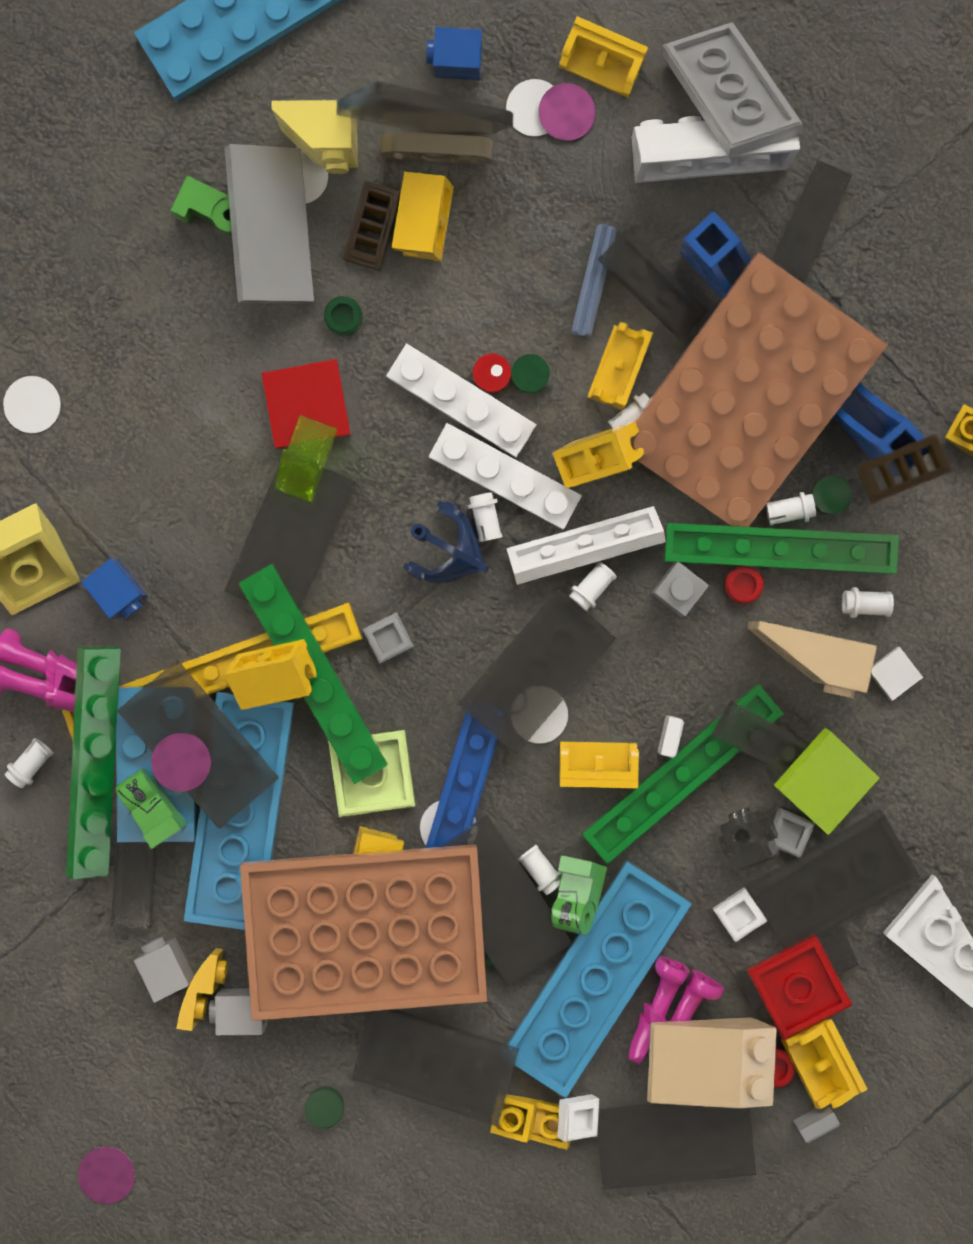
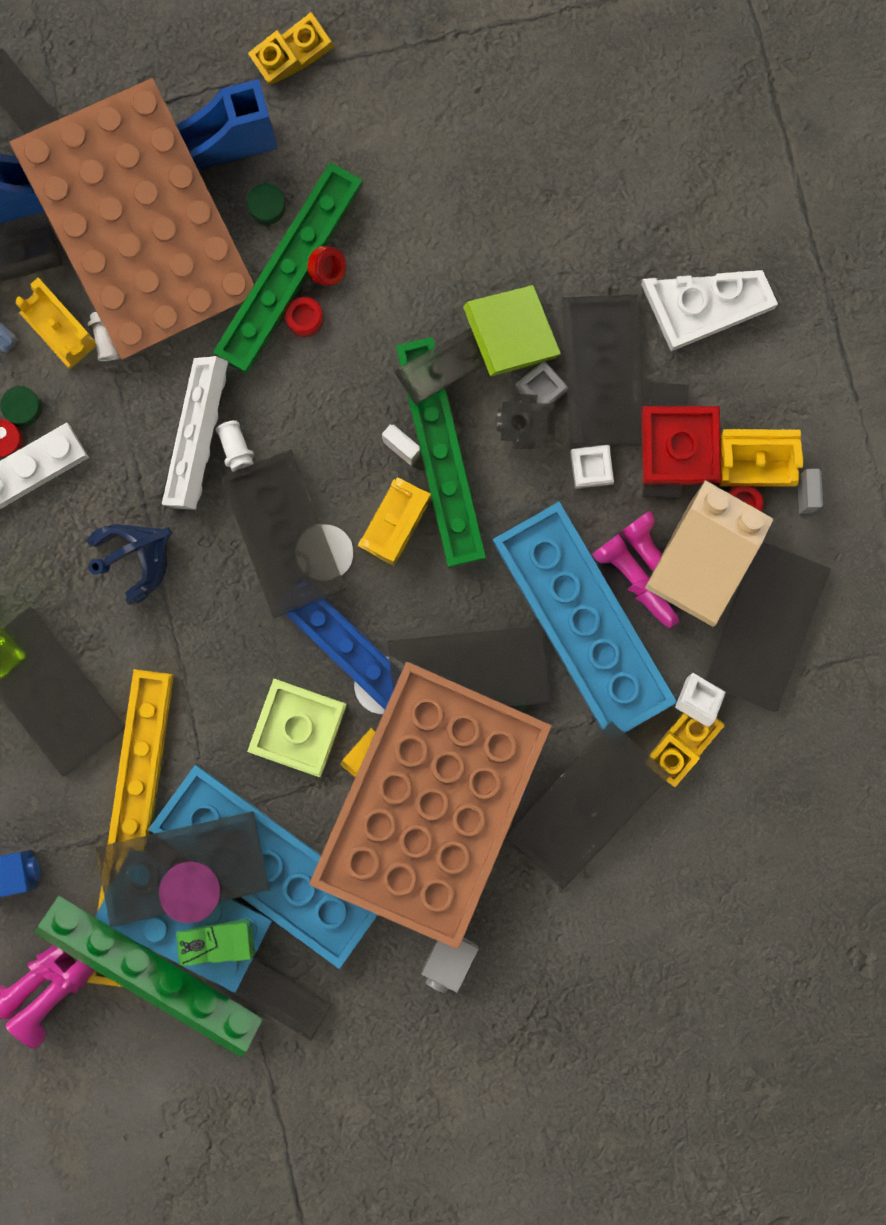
camera: 55 degrees left, 5 degrees down
(28, 763) = (122, 1039): white pin -> none
(106, 1175) = (539, 1167): flat silver sticker -> none
(163, 968) = (373, 1010): light grey brick -> none
(205, 981) = (403, 974): yellow slope -> none
(271, 674) = (155, 768): yellow hinge -> none
(324, 1107) = (577, 928): dark green tile -> none
(328, 695) = (178, 732): green plate -> none
(388, 637) = (184, 650): light grey tile -> none
(485, 516) = (122, 508): white pin -> none
(504, 476) = (97, 474): white plate -> none
(540, 870) = (461, 620): white pin -> none
(577, 895) = (498, 596): bright green leg -> none
(597, 455) = (118, 379): yellow hinge -> none
(679, 589) = (276, 370): light grey brick -> none
(791, 509) = (259, 242): white pin -> none
(800, 582) = (326, 266): none -> red tile
(824, 659) = (395, 279): tan slope -> none
(867, 603) = (376, 217): white pin -> none
(895, 673) = (449, 227): white tile -> none
(937, 456) = (262, 76): dark brown slope -> none

